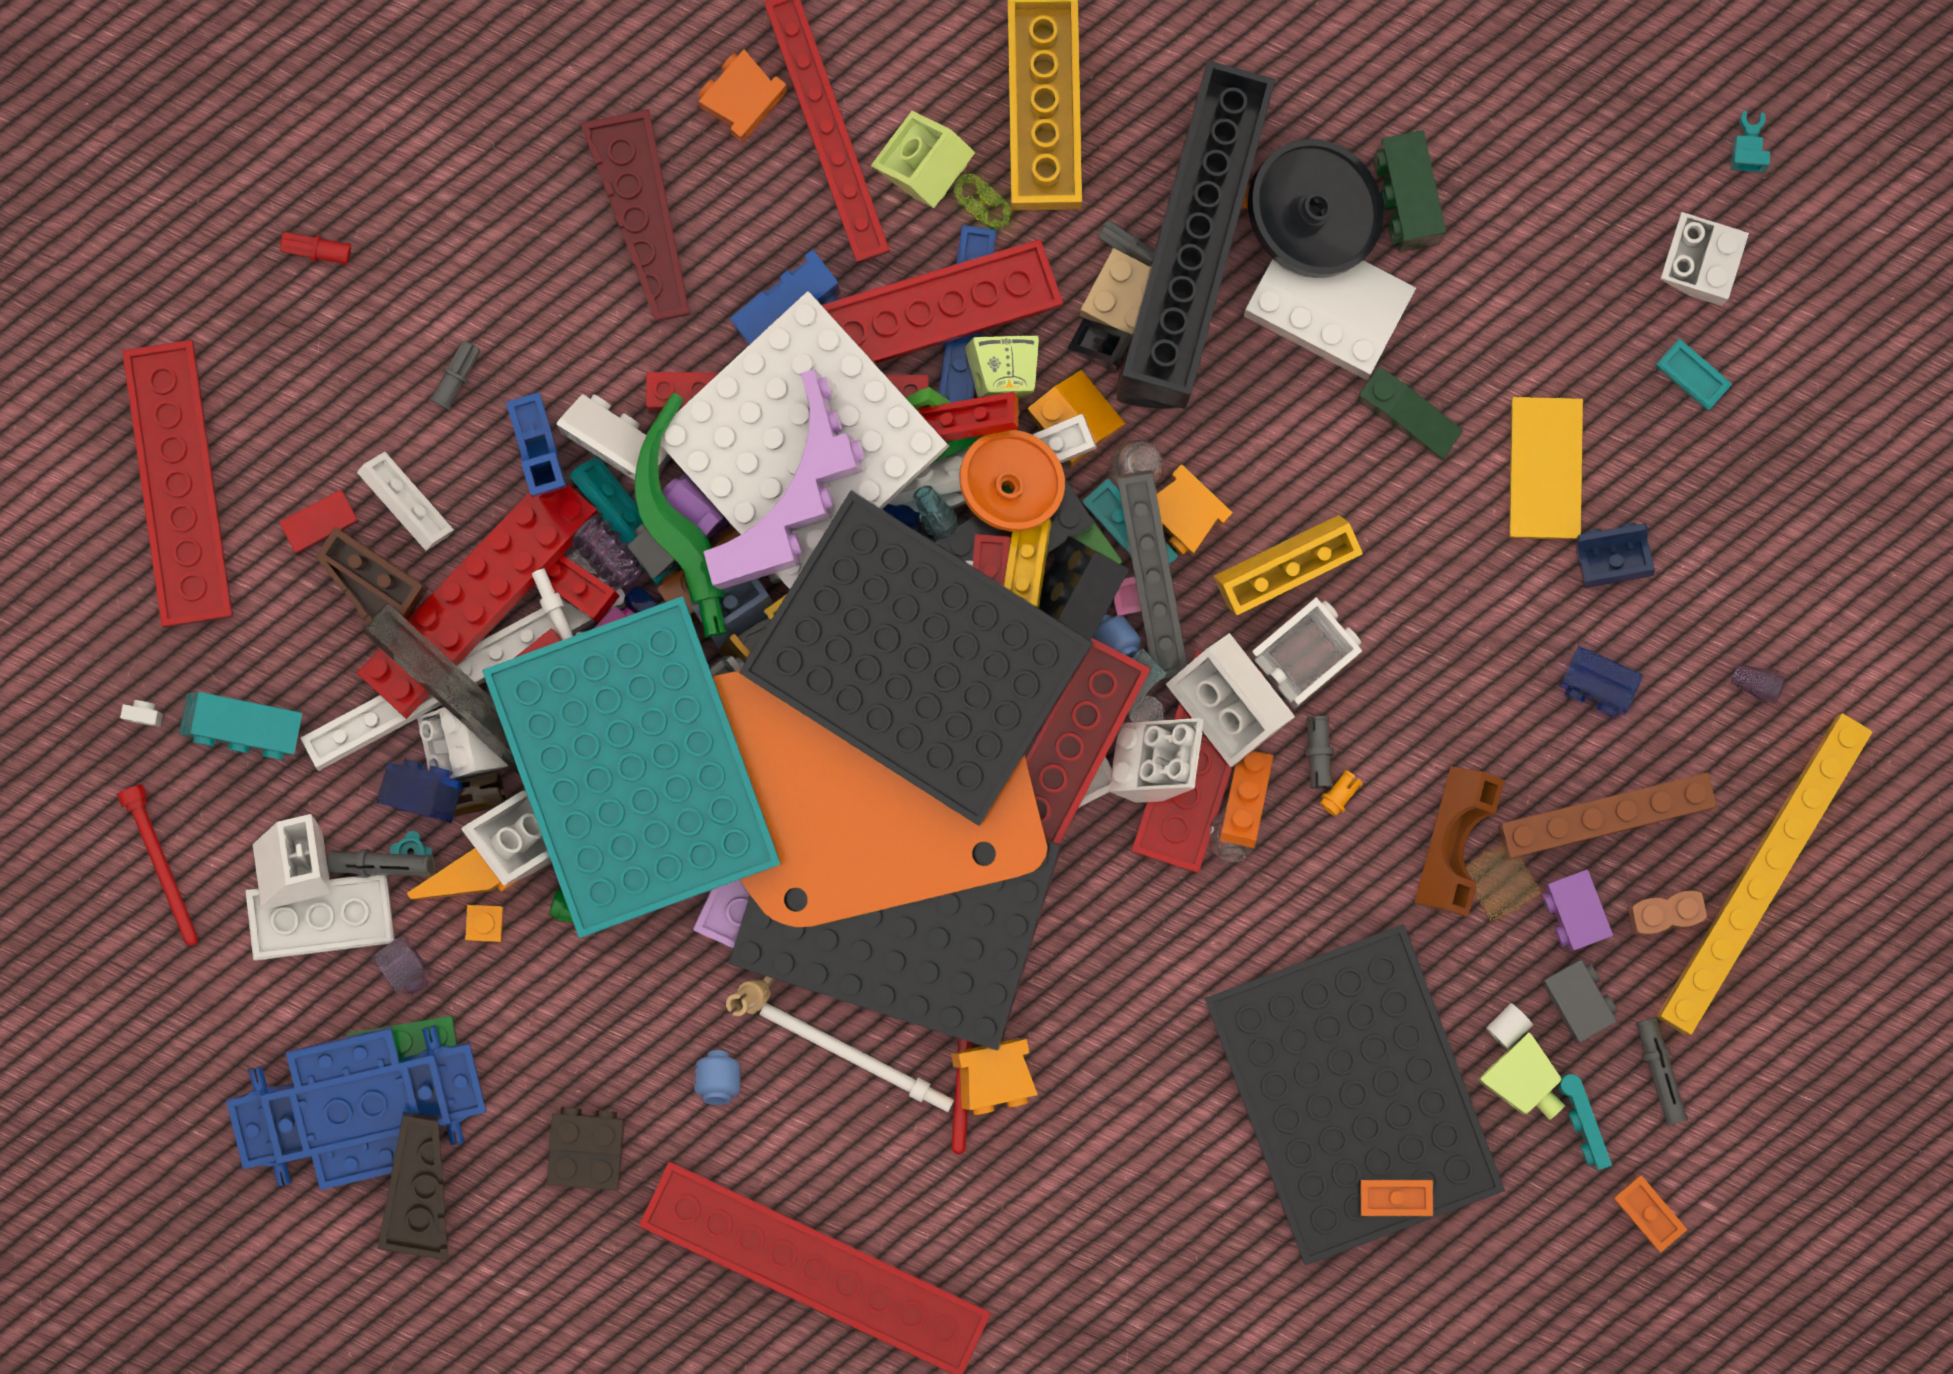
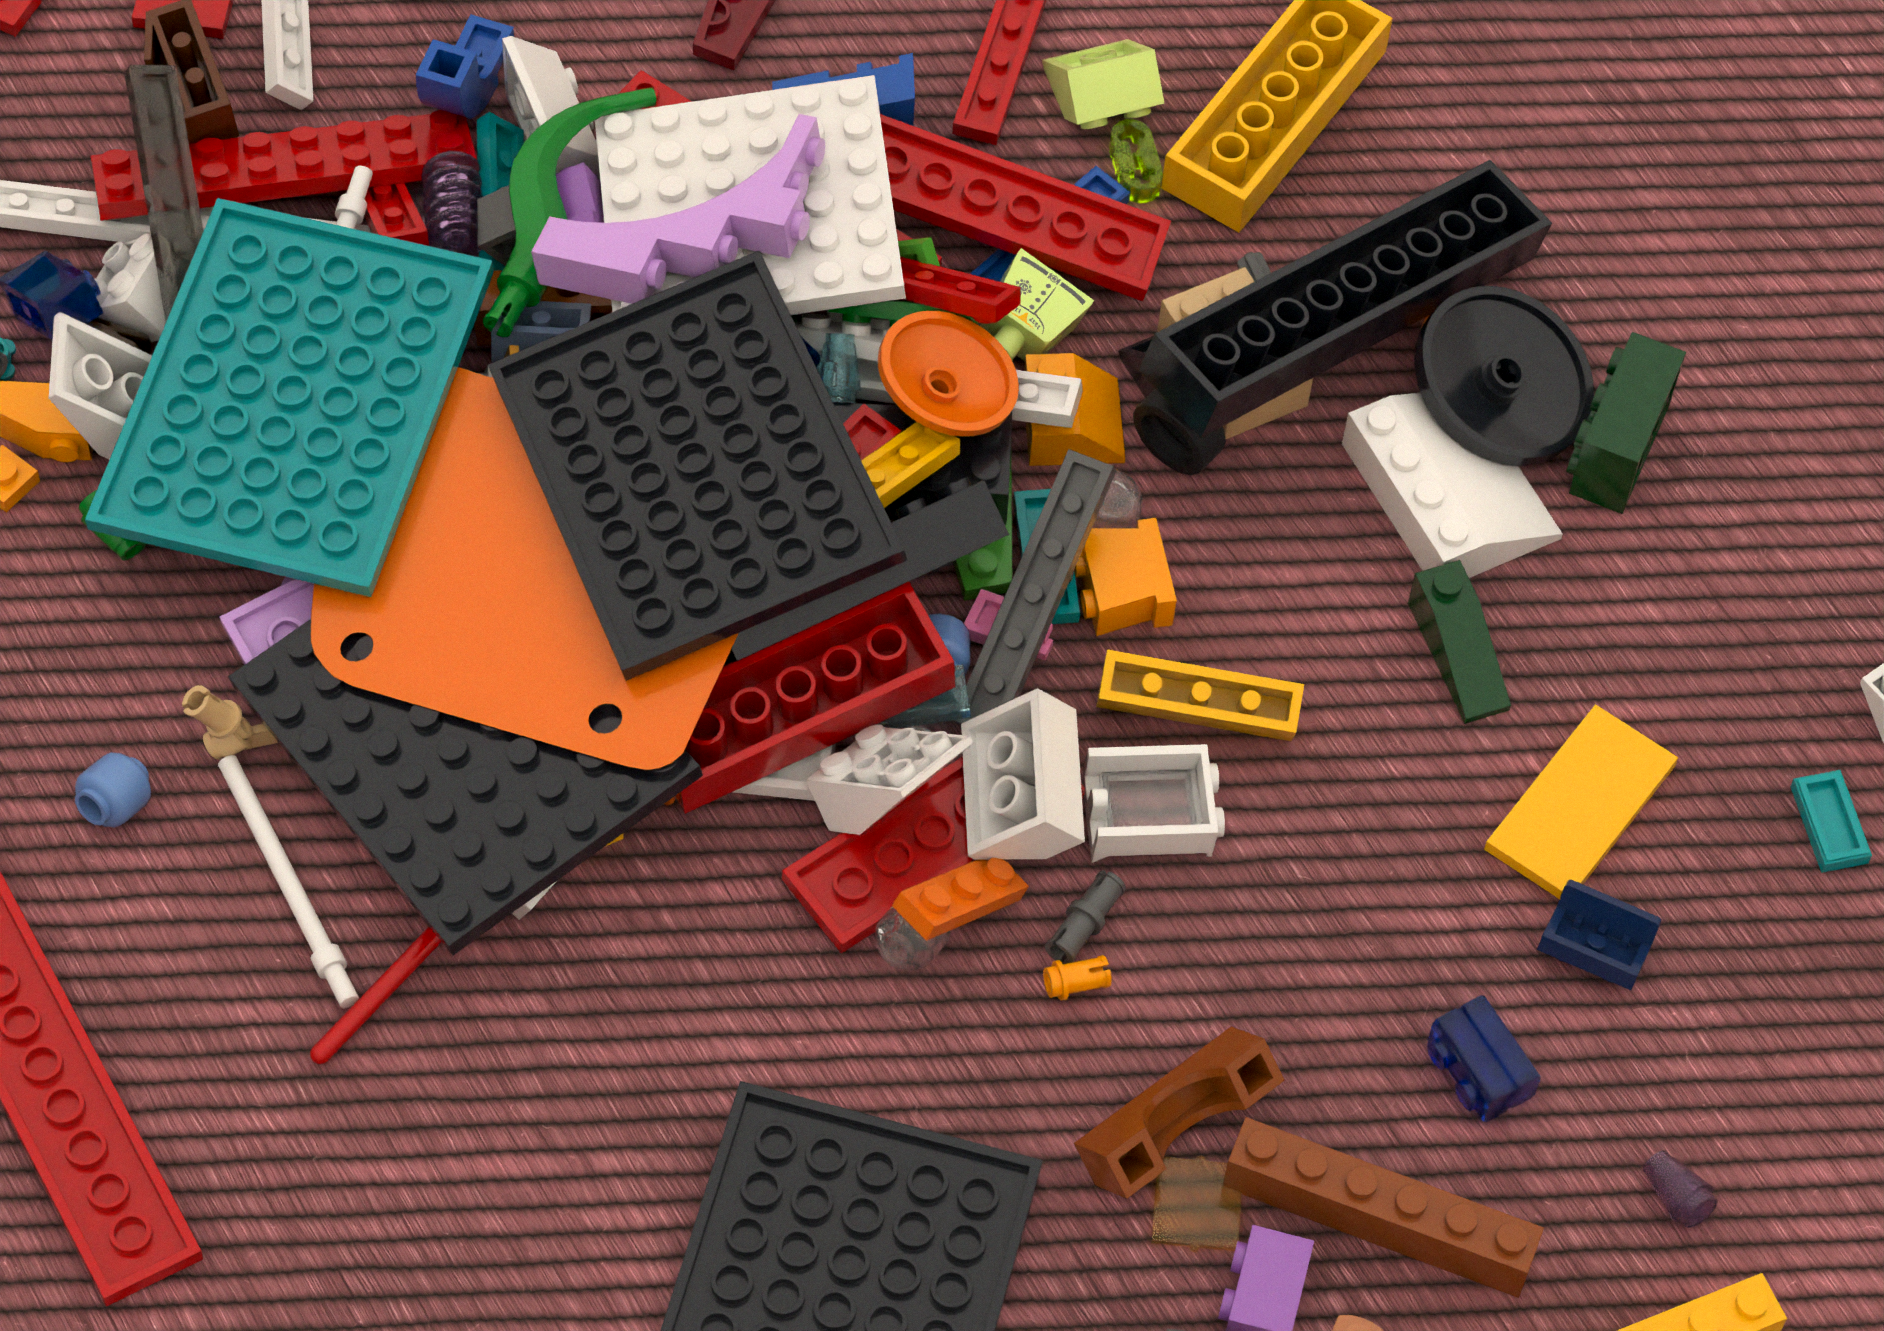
camera: 30 degrees right, 25 degrees down
(994, 1076) = (425, 992): light orange hips -> none

